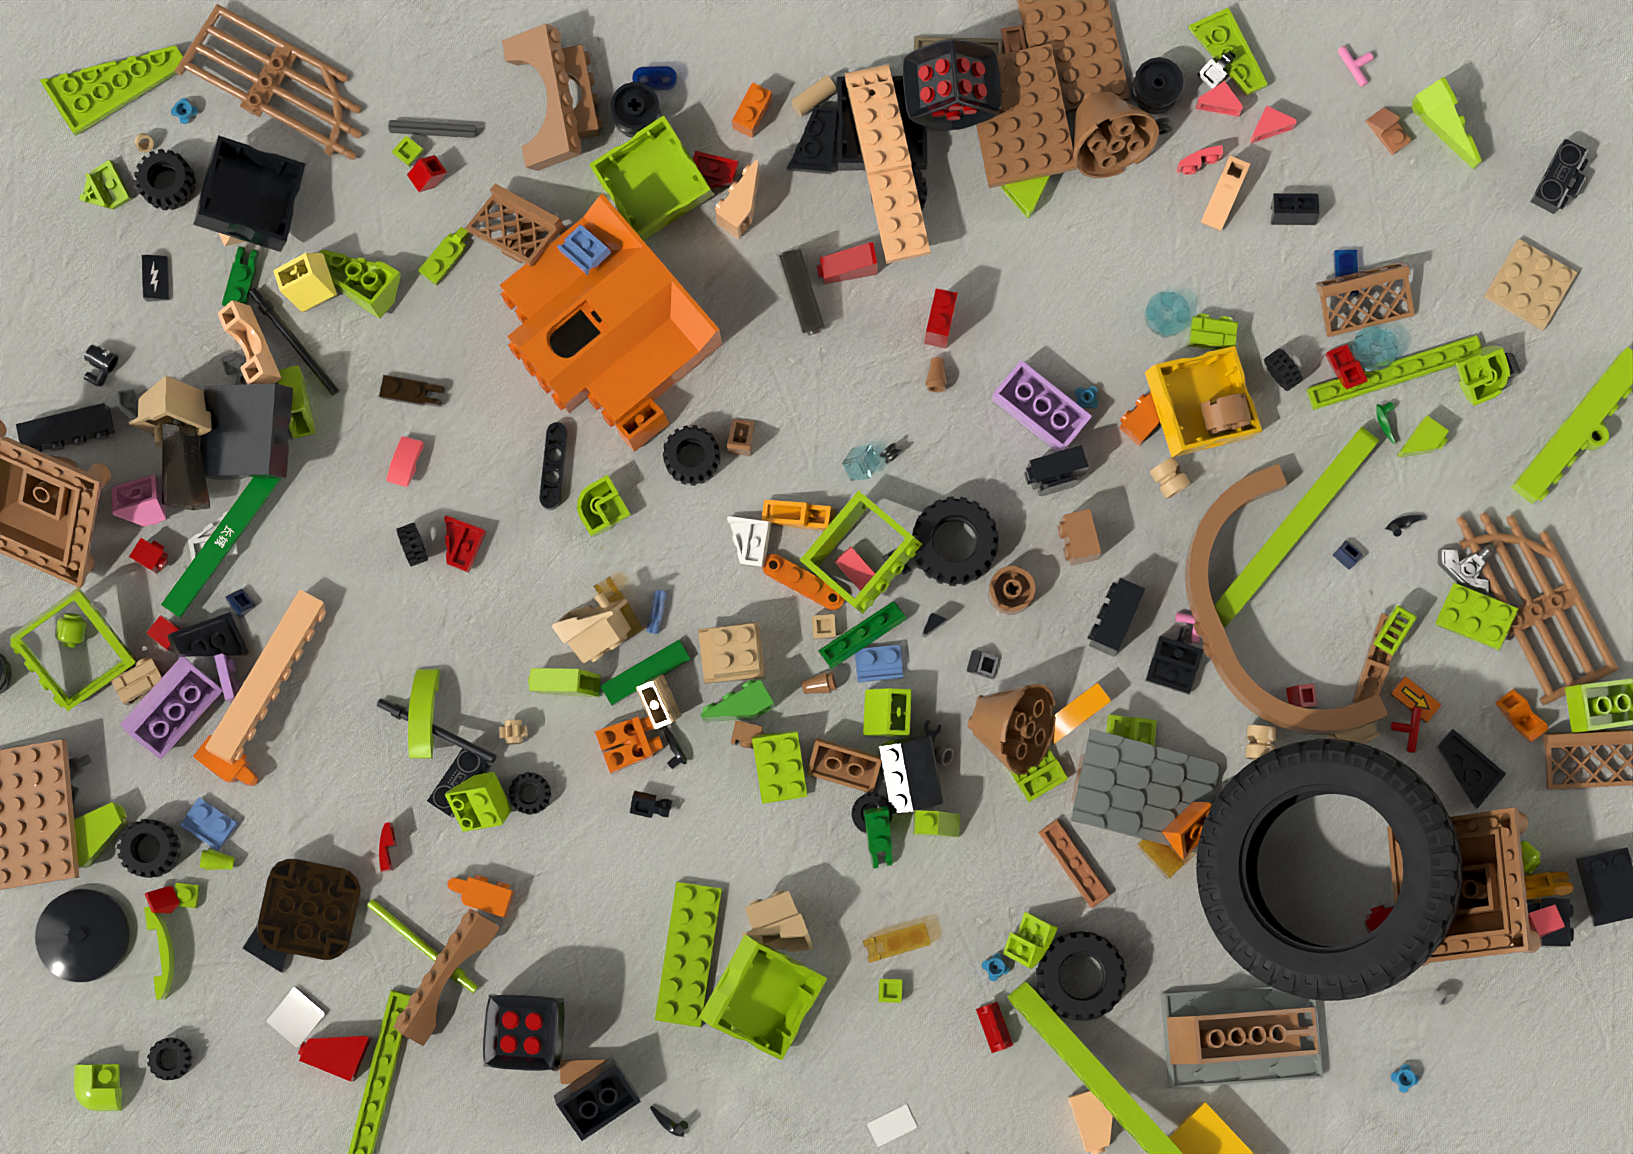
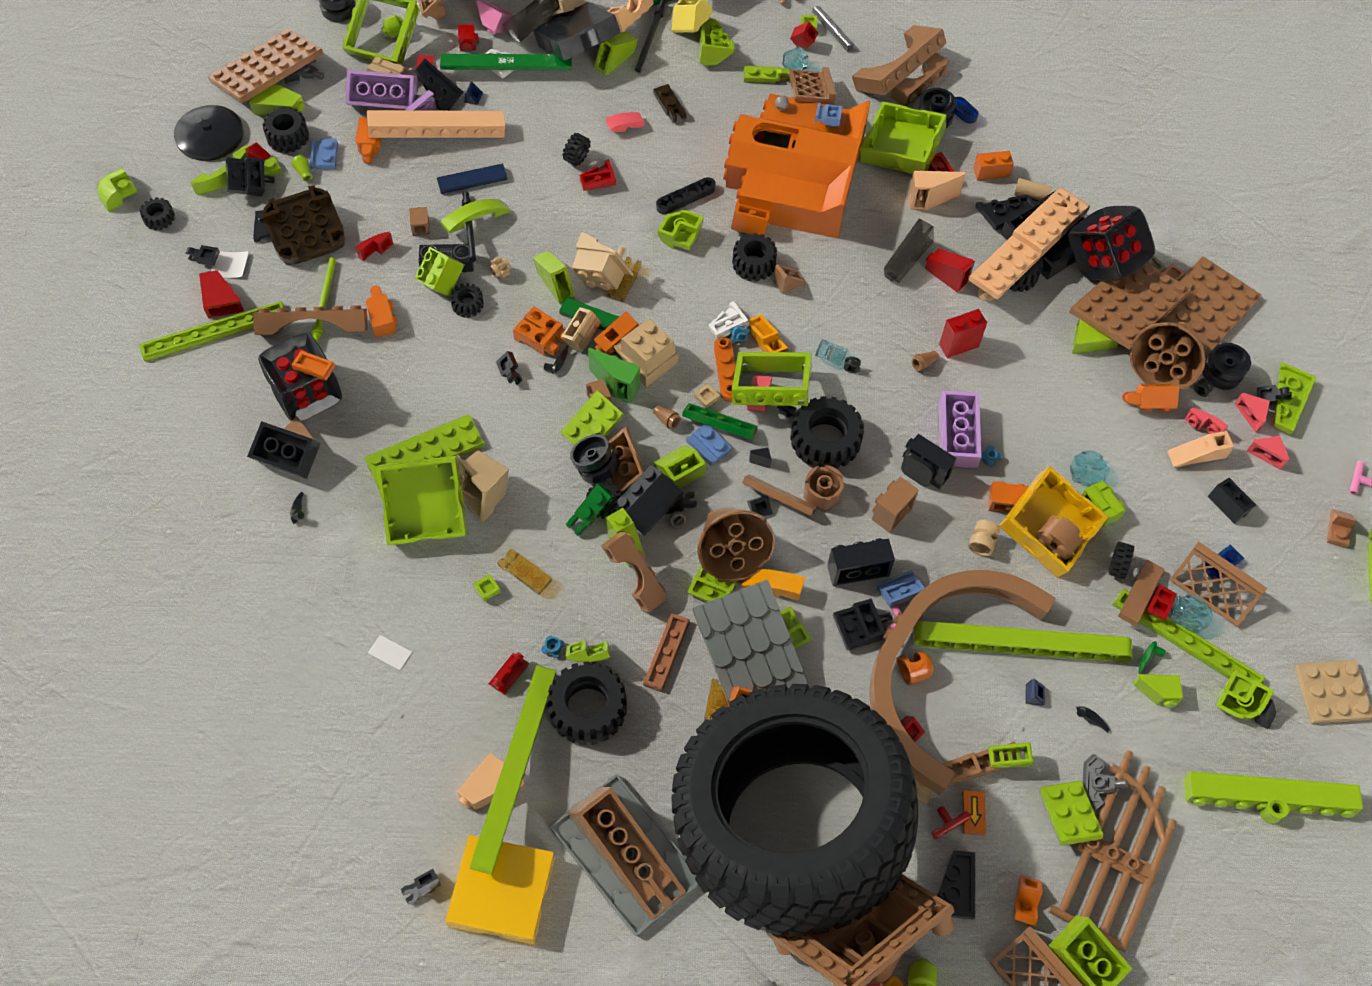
camera: 50 degrees right, 20 degrees down
(191, 932) = (246, 176): none -> black plate
(269, 1038) = (205, 255): none -> black plate
(363, 682) = (472, 178): none -> dark blue tile
(386, 777) = (419, 221): none -> medium nougat brick
(452, 209) = (795, 59): none -> clear light blue panel
(529, 285) = (782, 103): none -> light grey hinge
(540, 1016) = (313, 365): none -> orange tile
(656, 611) = (639, 300): medium blue axle -> none
(689, 669) = (614, 333): none -> orange brick
(774, 540) = (739, 334): none -> dark azure plate
(827, 794) = (594, 458): none -> black wheel
(962, 843) = (648, 591): none -> medium nougat arch
(986, 637) = (779, 494): none -> medium nougat tile
(1138, 187) = (1153, 396): none -> orange hinge
(1164, 596) = (900, 588): none -> medium blue plate
(1259, 649) = (917, 670): none -> orange helmet
(1324, 377) = (1141, 592): none -> medium nougat tile

